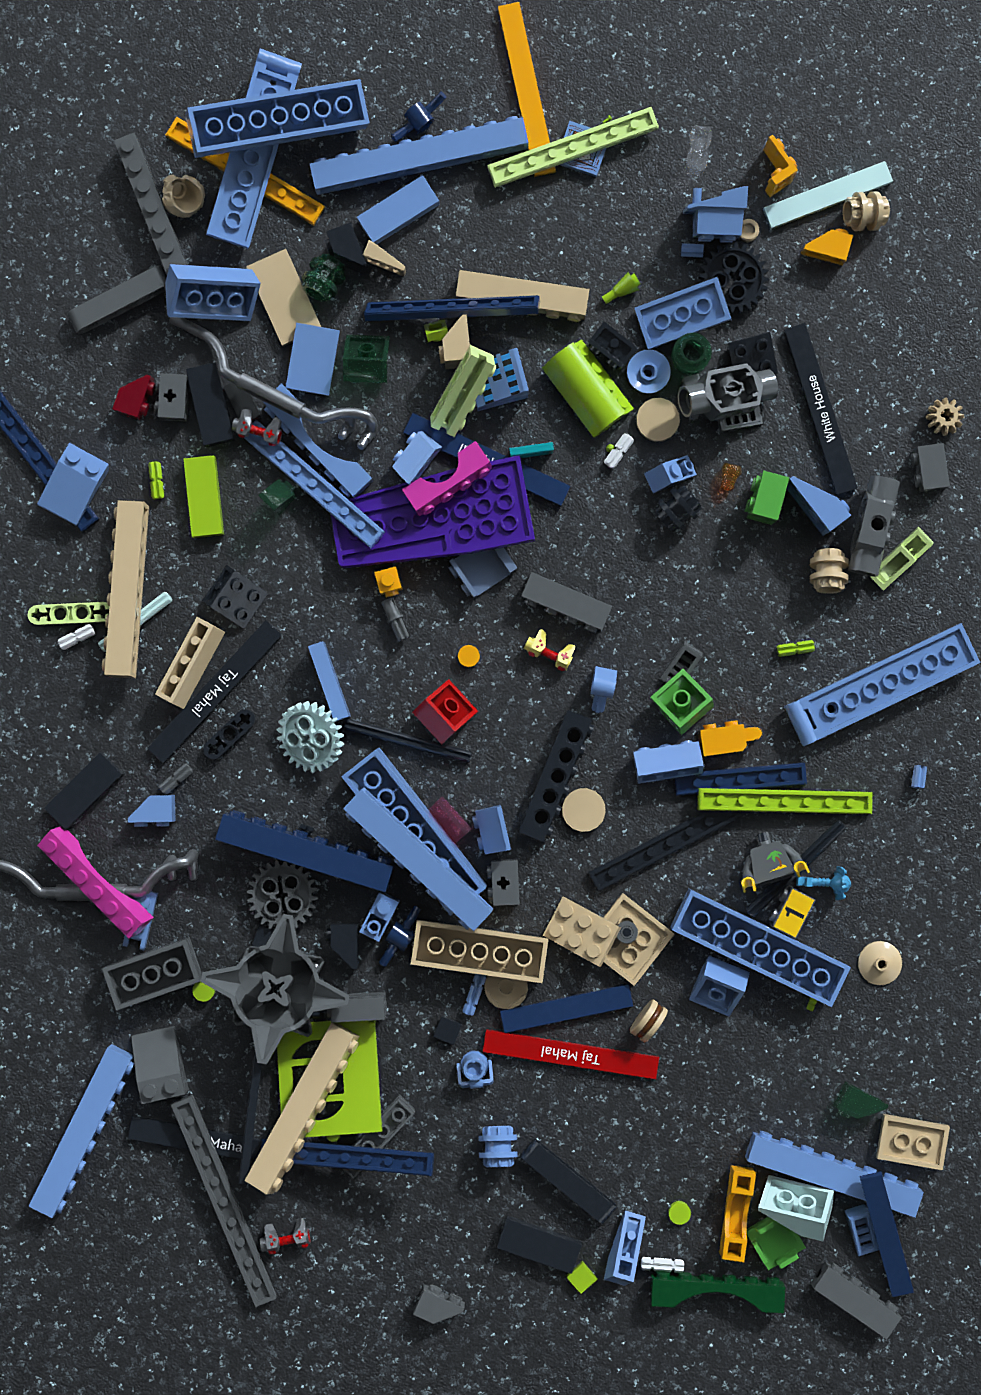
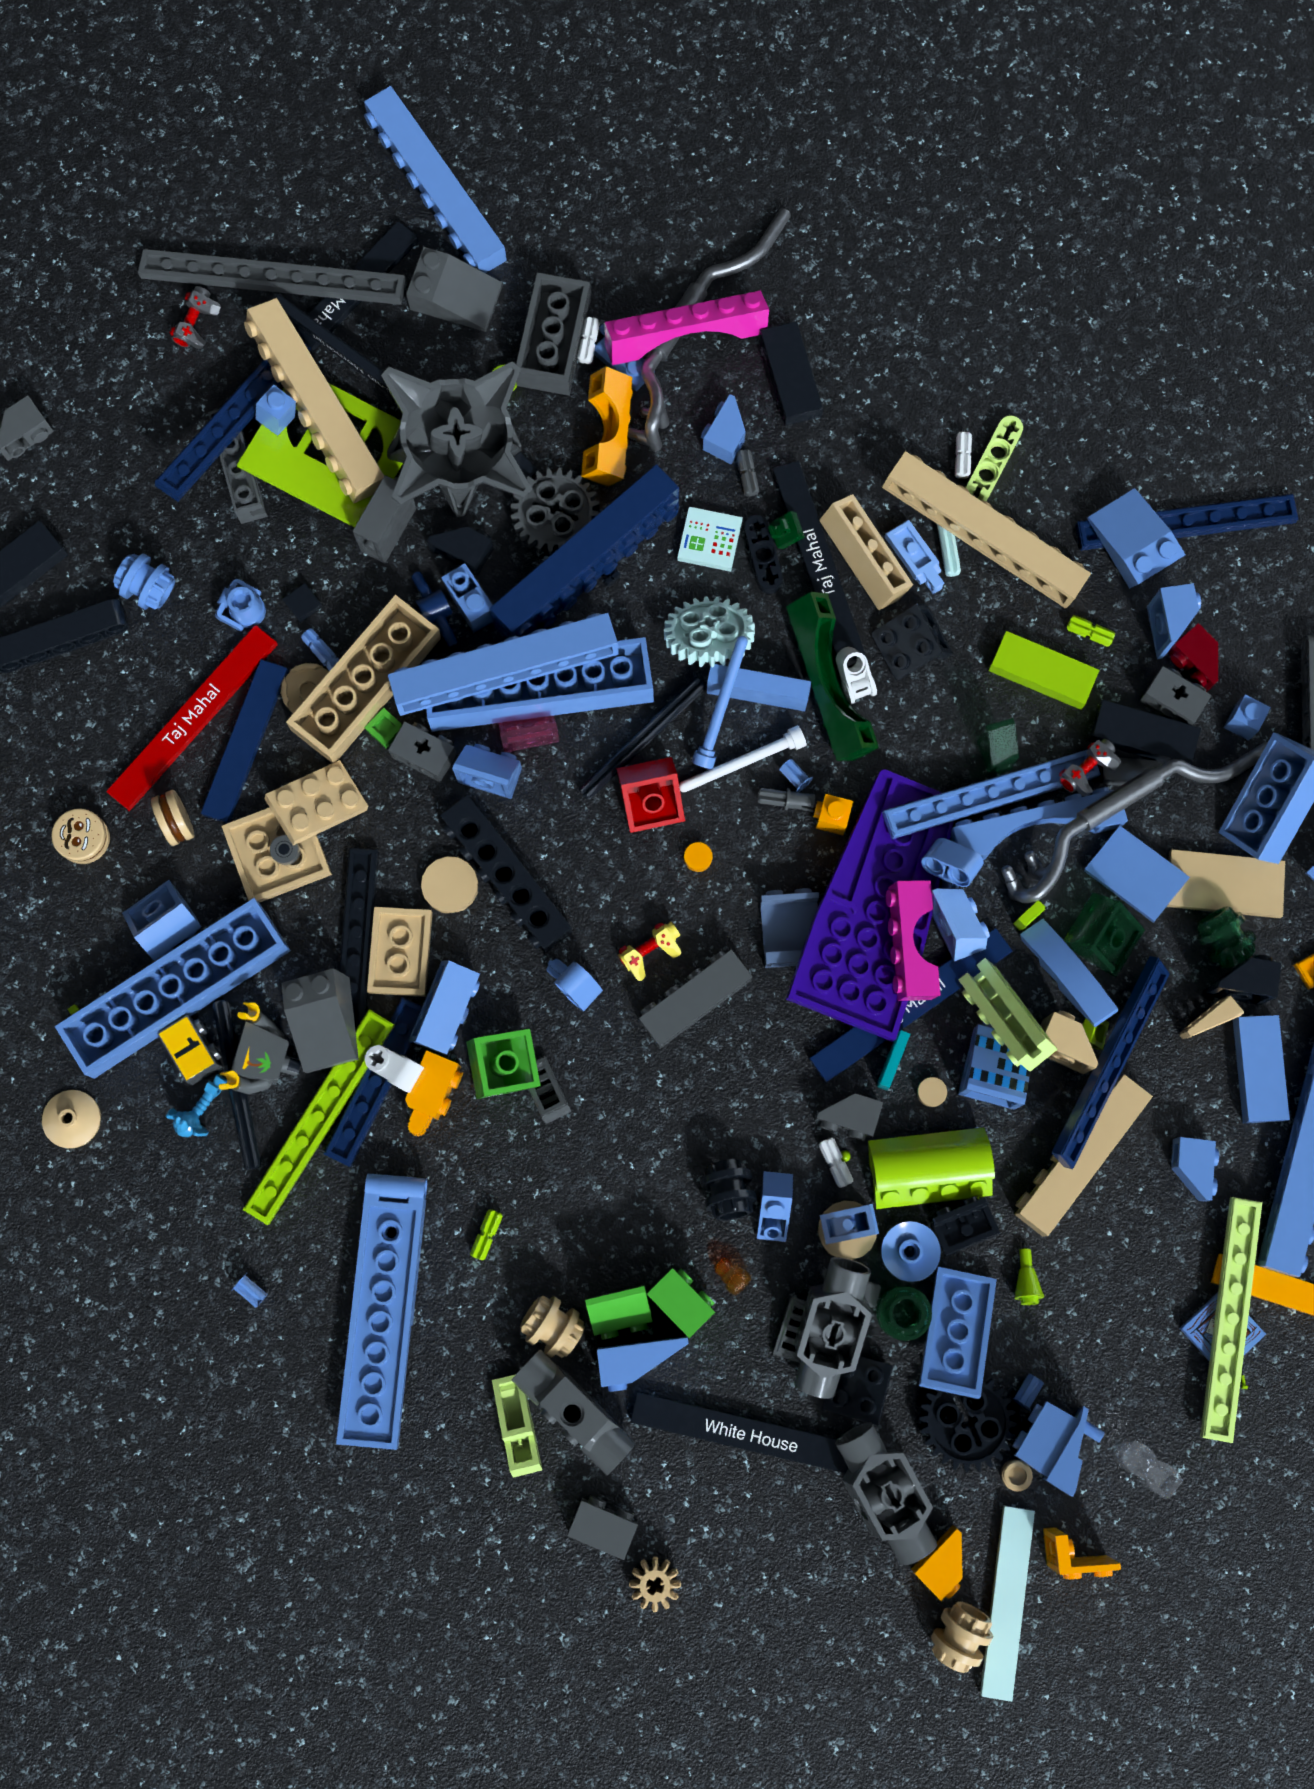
camera: 120 degrees right, 10 degrees down
(118, 428) = (1170, 615): none -> medium blue slope
(139, 947) = (587, 345): none -> white piece
(160, 342) = (1247, 717): none -> medium blue brick
(170, 629) = (915, 555): none -> light blue hinge
(176, 904) = (611, 395): none -> light orange arch
(204, 727) = (786, 530): none -> dark green tile
(239, 777) = (710, 539): none -> light aqua tile
(284, 619) = (855, 680): none -> white piece
(323, 605) = (814, 625): none -> dark green arch
(327, 1128) = (275, 410): none -> medium blue brick
(351, 639) = (790, 740): none -> white piece
(374, 623) = (795, 775): none -> medium blue piece
(379, 482) = (952, 863): none -> medium blue beam
(383, 414) = (1030, 915): none -> lime tile
(397, 690) = (705, 755): none -> medium blue piece
(407, 367) = (1069, 972): none -> medium blue slope
(486, 221) = (1194, 1164): none -> medium blue slope
(502, 919) = (383, 727): none -> bright green tile
(536, 414) = (932, 1092): none -> tan tile
(581, 457) = (853, 1114): none -> dark grey slope
(647, 815) = (399, 951): none -> tan plate
(656, 418) = (849, 1224): none -> medium blue slope
(695, 1076) = (80, 836): none -> tan head
(724, 836) = (321, 1019): none -> dark grey slope
(727, 766) = (395, 1067): none -> white piece
(794, 534) = (619, 1311): none -> bright green slope
(808, 303) = (887, 1493): none -> dark grey brick

